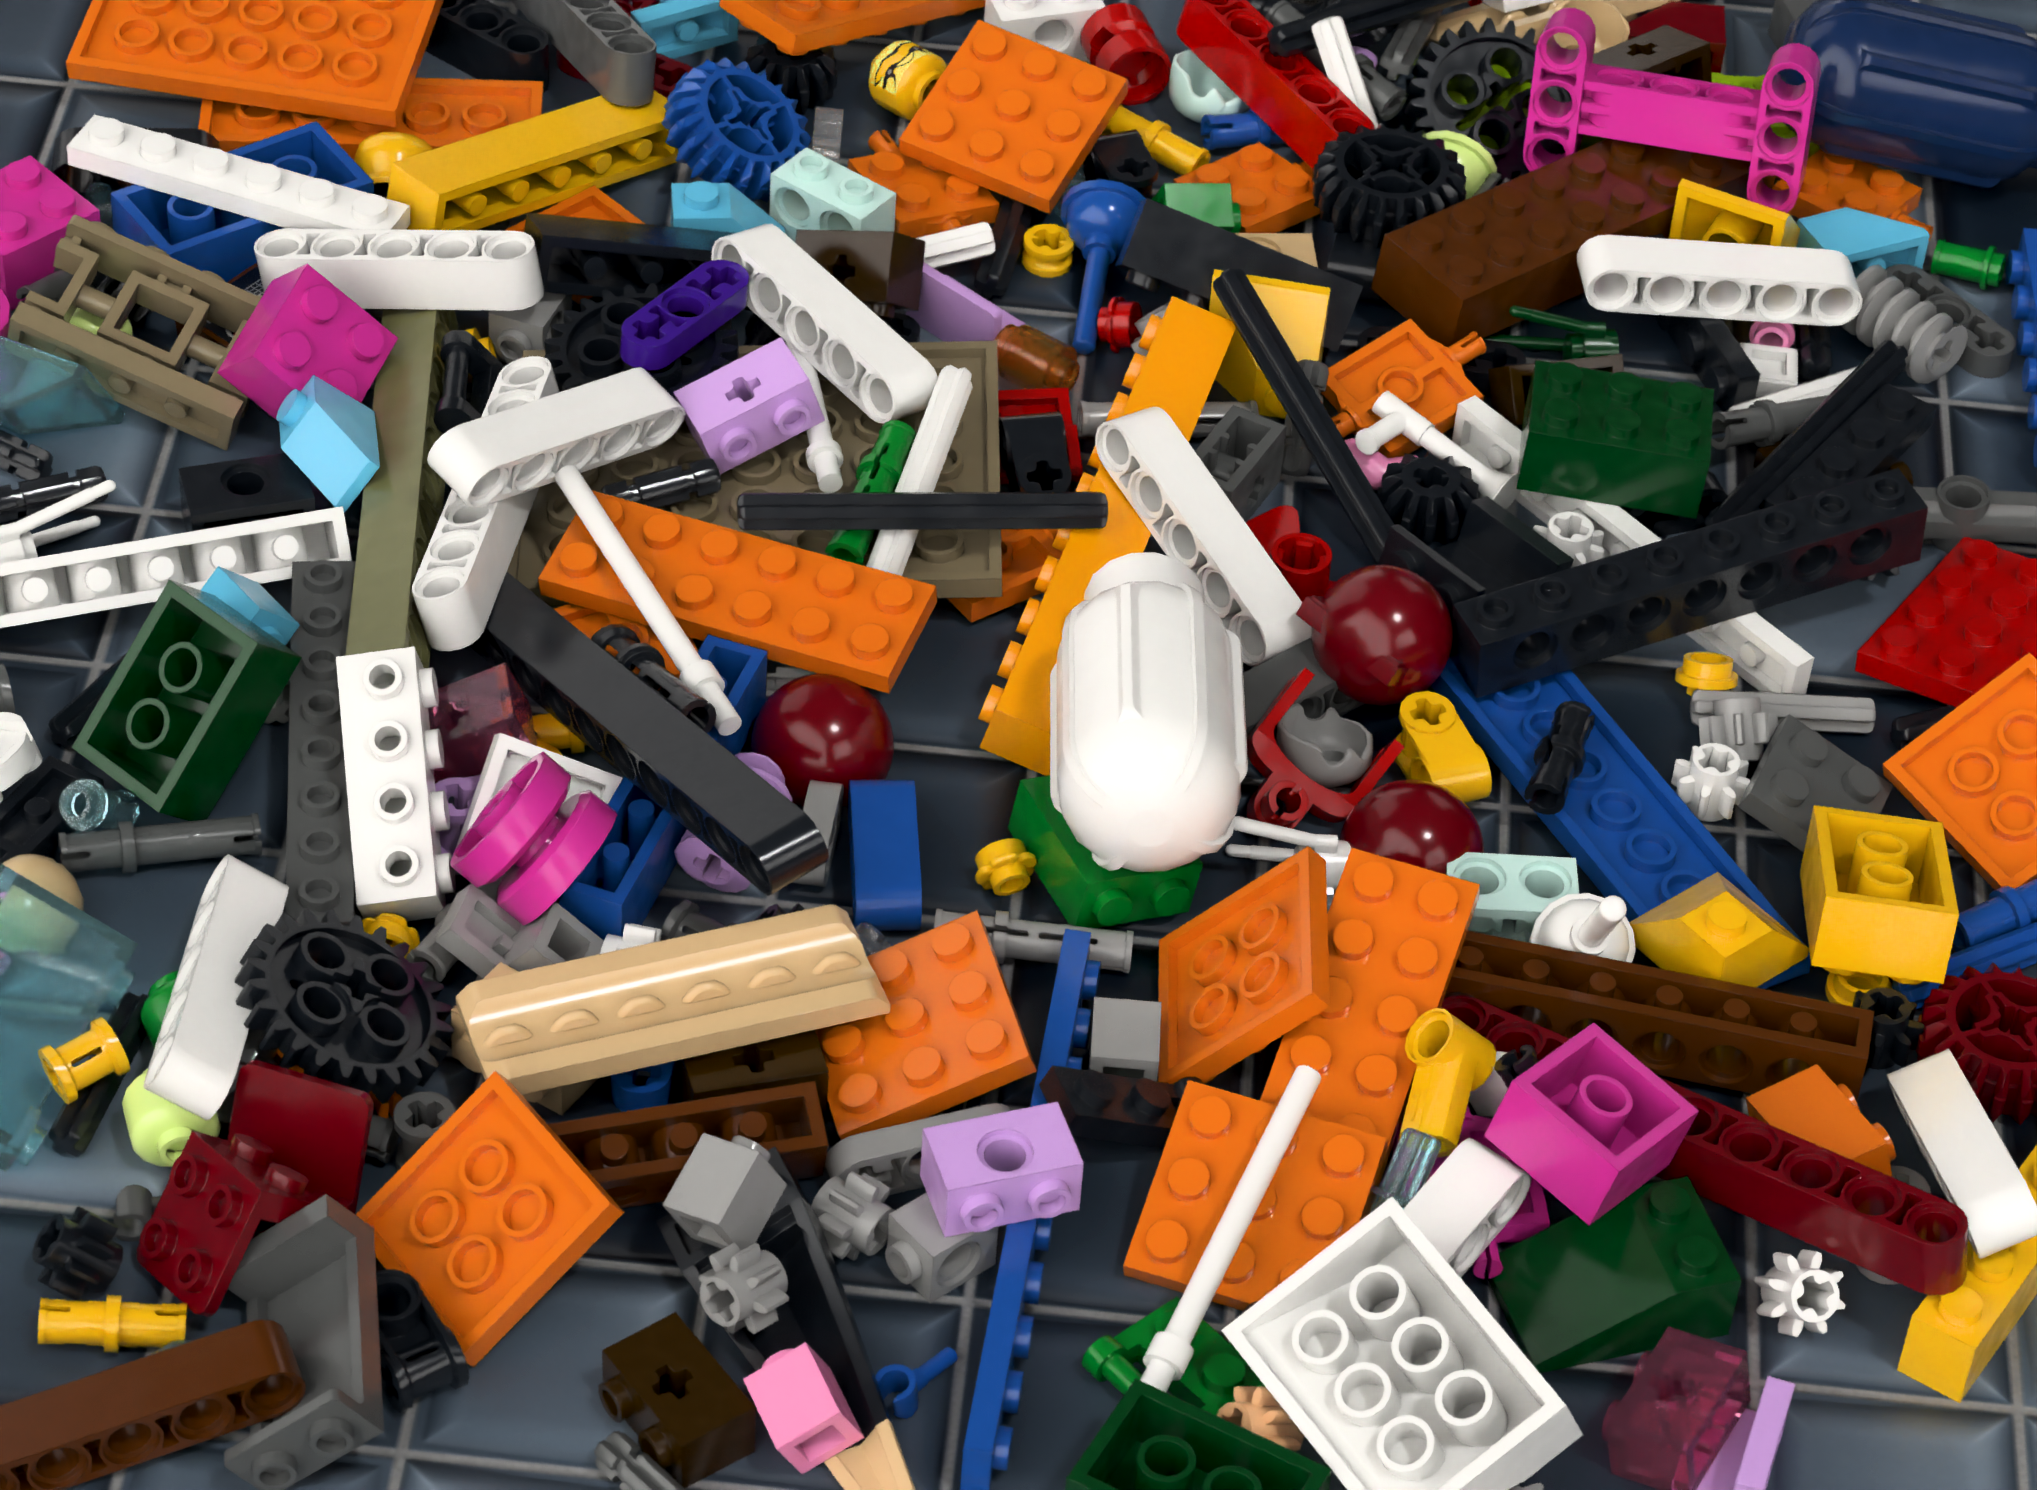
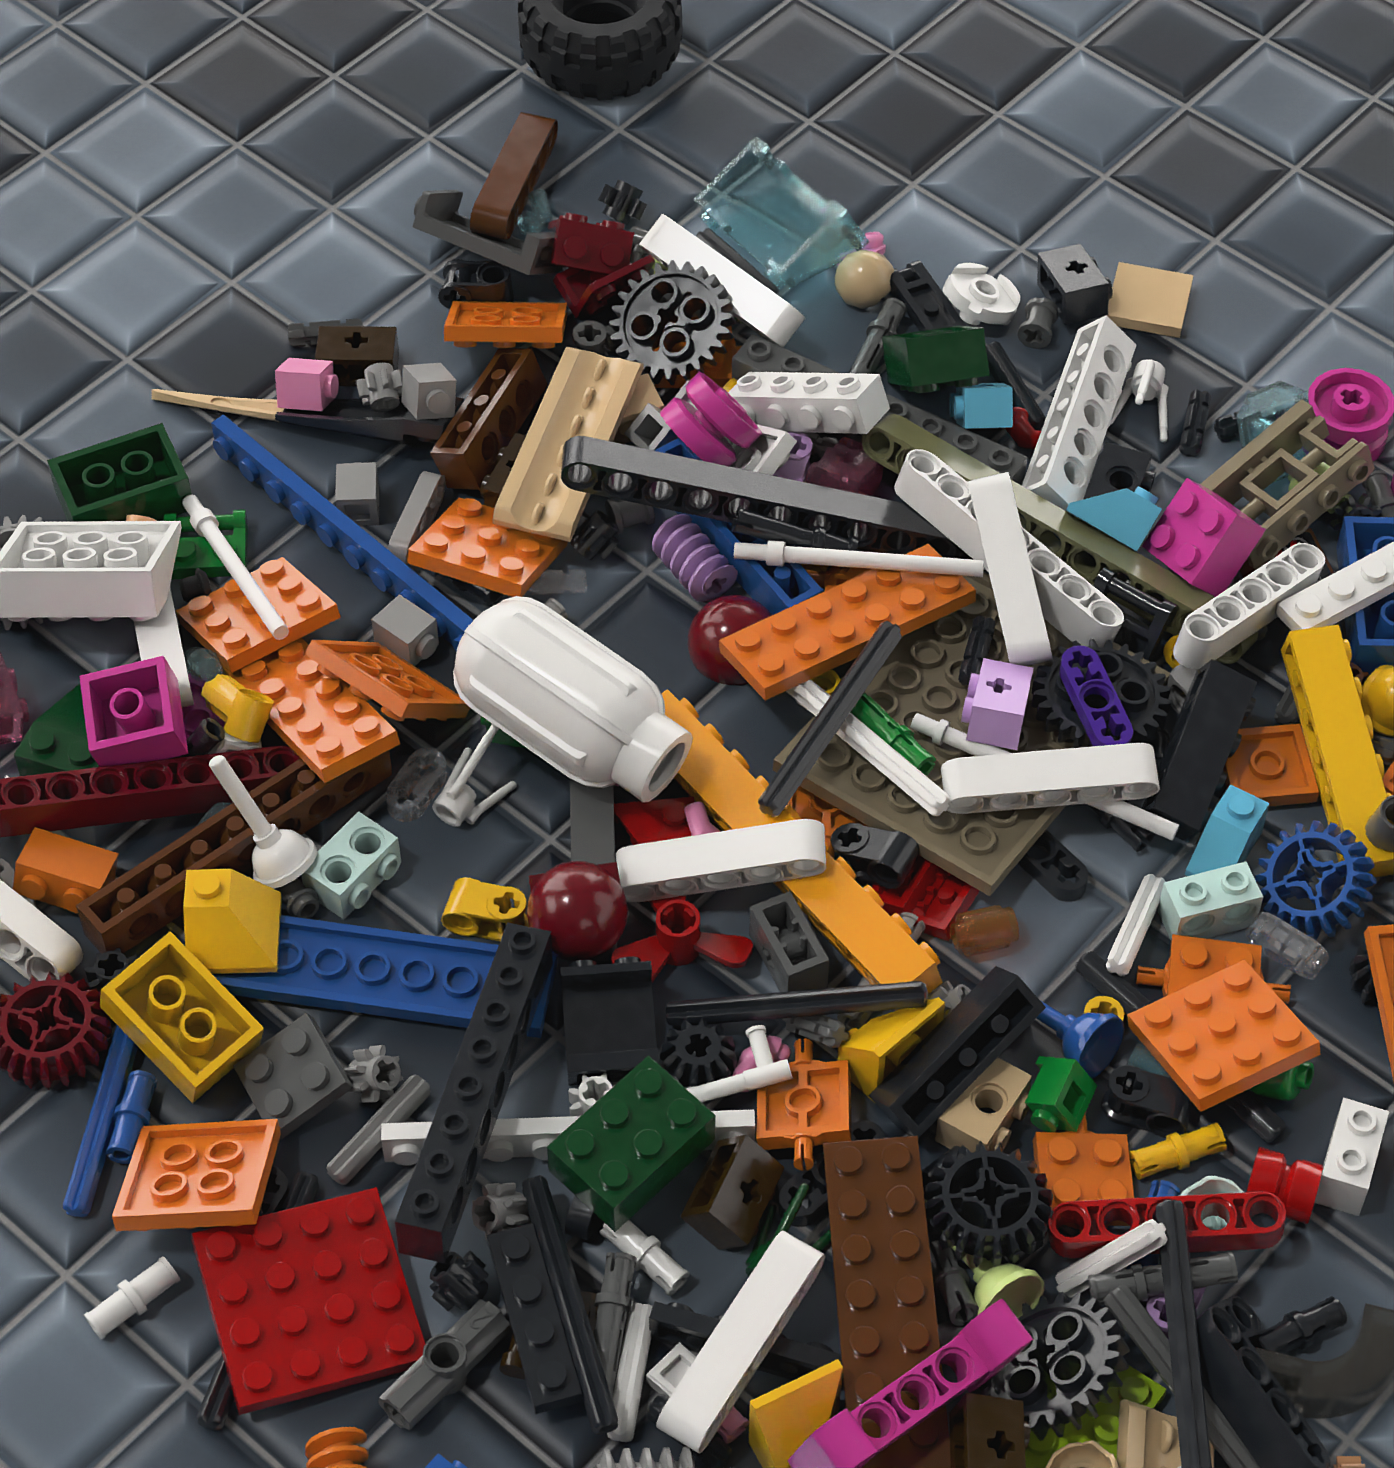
camera: 130 degrees right, 10 degrees up
(90, 806) = (909, 317): clear light blue pin -> none
(99, 1041) = (725, 237): yellow bush -> none
(110, 1323) = (582, 198): yellow pin -> none
(824, 808) = (665, 597): light grey beam -> none
(853, 1214) = (399, 466): light grey gear -> none
(873, 265) = (1116, 856): dark brown brick -> none
(884, 854) = (626, 616): blue beam -> none
(904, 77) = (1337, 1029): yellow head -> none
(909, 1382) = (296, 446): blue hand -> none
(956, 311) = (1060, 922): lavender panel -> none
(1001, 1169) = (347, 495): lavender brick -> none
(1114, 1105) = (360, 592): black plate -> none
(1290, 784) = (517, 817): red piece -> none
(1325, 748) = (535, 848): light grey hair -> none
(1413, 824) = (431, 851): dark red piece -> none
(1559, 757) = (420, 947): black pin -> none
(1706, 672) = (431, 1088): yellow plate -> none
(1711, 781) = (350, 1031): white gear -> none

